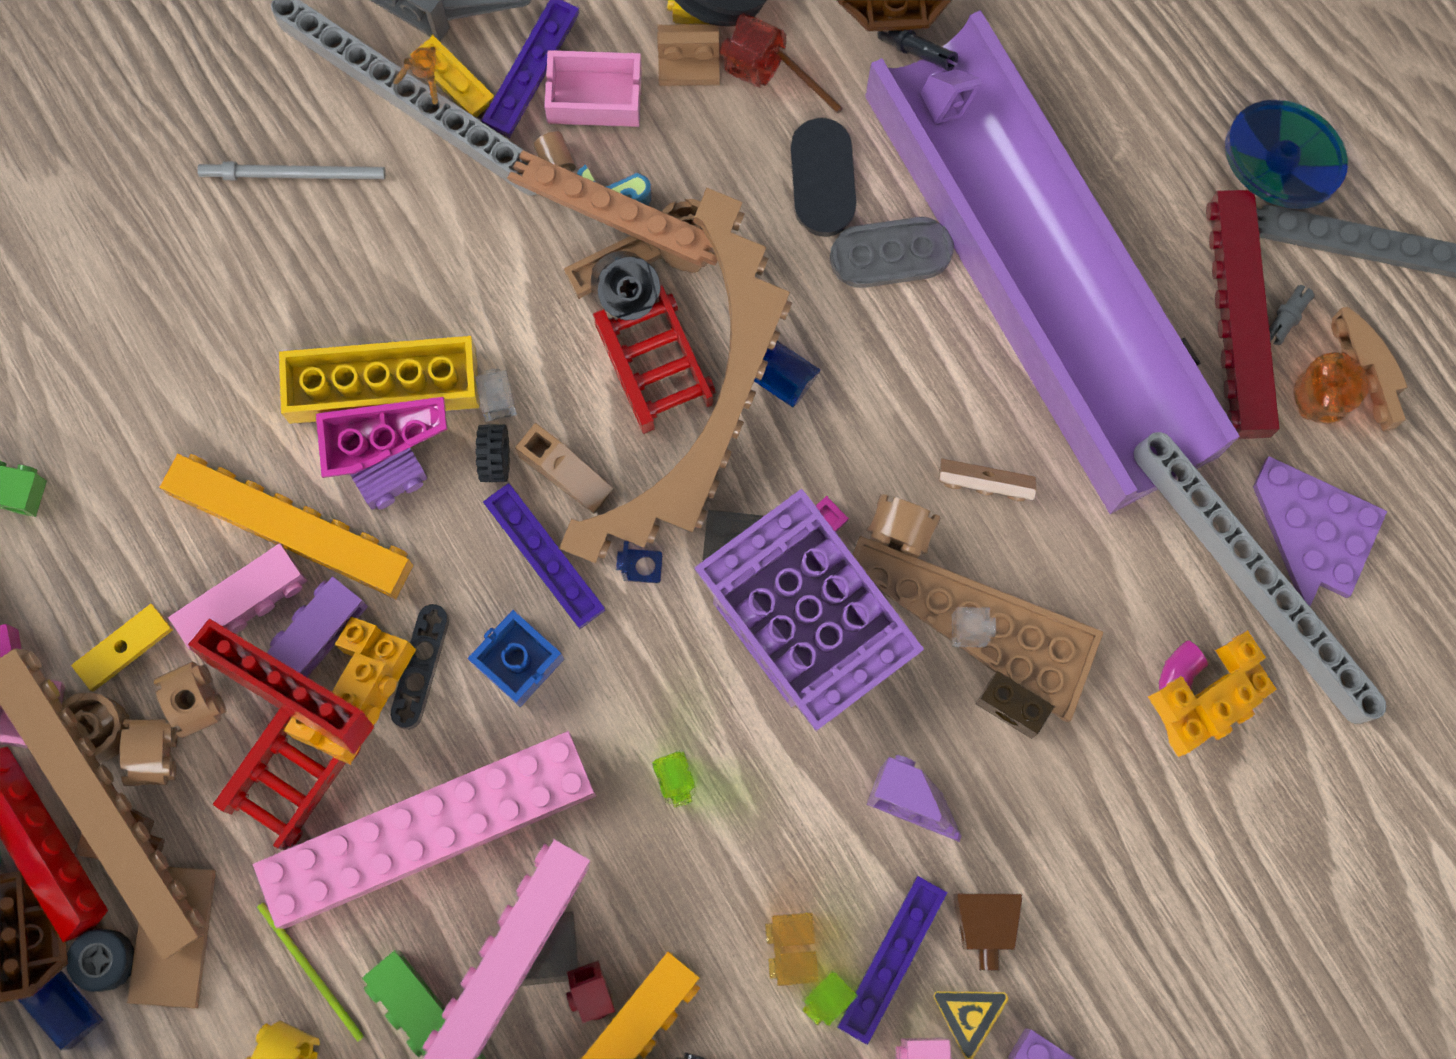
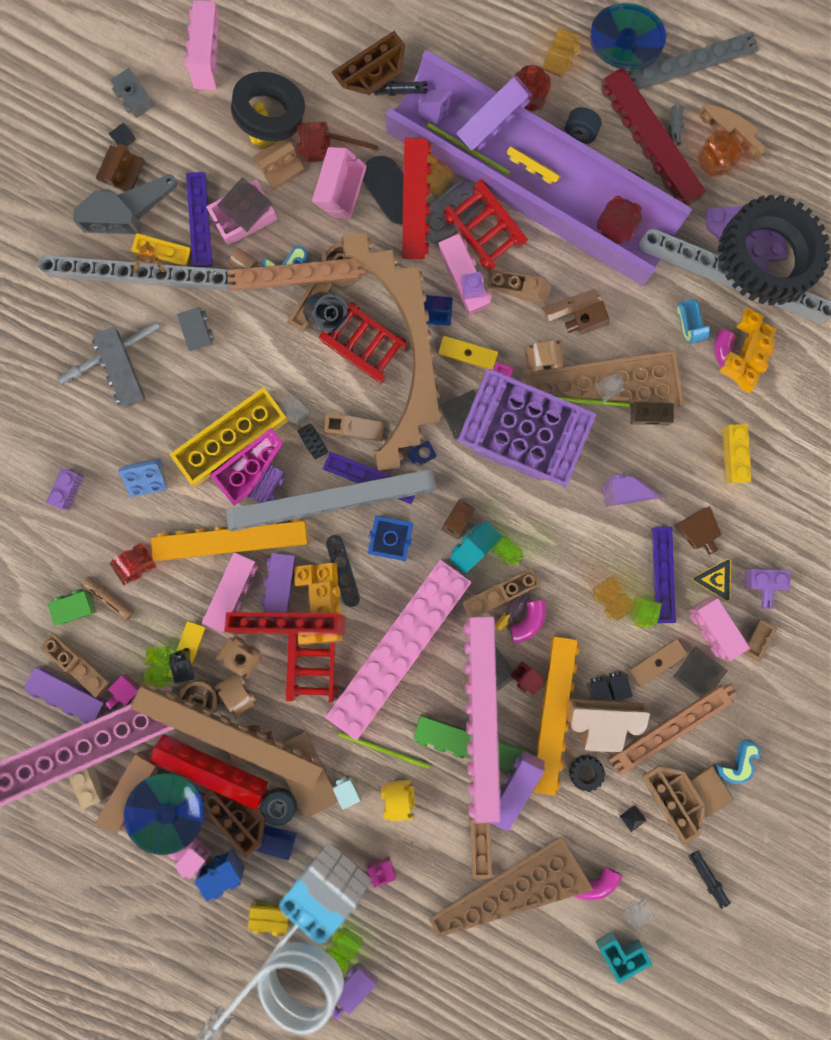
camera: 30 degrees left, 10 degrees up
(59, 494) = (100, 593): none -> medium nougat pin
(78, 634) = (160, 658): none -> clear neon green piece
(97, 662) = (181, 666): none -> black bracket
(107, 318) = (65, 489): none -> medium lavender brick
(128, 475) = (132, 564): none -> clear red brick
(213, 1000) = (346, 792): none -> light aqua brick
(224, 366) = (143, 477): none -> medium blue bracket
(290, 197) = (119, 367): none -> flat silver brick
(429, 206) = (195, 328): none -> dark grey brick
(465, 551) = (330, 500): none -> light grey beam
(601, 76) = (244, 204): none -> clear smoke plate
(629, 838) = (501, 593): none -> medium nougat slope
(630, 743) = (474, 546): none -> teal brick
(631, 877) = (513, 610): none -> piece
(633, 688) = (458, 519): none -> reddish brown torso
(647, 912) = (531, 624): none -> dark pink cylinder
(753, 123) = (339, 183): none -> bright pink piece
(781, 446) = (479, 356): none -> yellow tile
(845, 200) = (414, 198): none -> red brick
(854, 365) = (472, 285): none -> medium lavender brick
(856, 347) = (459, 263): none -> bright pink brick
(890, 179) = (440, 176): none -> clear yellow piece
(928, 410) = (520, 286): none -> medium nougat slope
(938, 637) = (593, 401): none -> lime axle
(951, 278) = (504, 222): none -> red fence
(963, 178) = (463, 146): none -> lime axle
(1011, 516) = (595, 314): none -> reddish brown torso
(1025, 147) = (494, 114): none -> medium lavender brick
(1043, 251) = (533, 165): none -> yellow tile
(1104, 147) = (538, 84): none -> clear red brick
(1109, 841) = (736, 454): none -> yellow brick
(1124, 394) = (619, 219): none -> clear red brick
(1150, 238) = (583, 125): none -> black wheel
(1153, 605) = (691, 322): none -> dark azure animal
(1171, 129) = (560, 53): none -> clear yellow piece
(1378, 539) = (792, 224): none -> black tyre

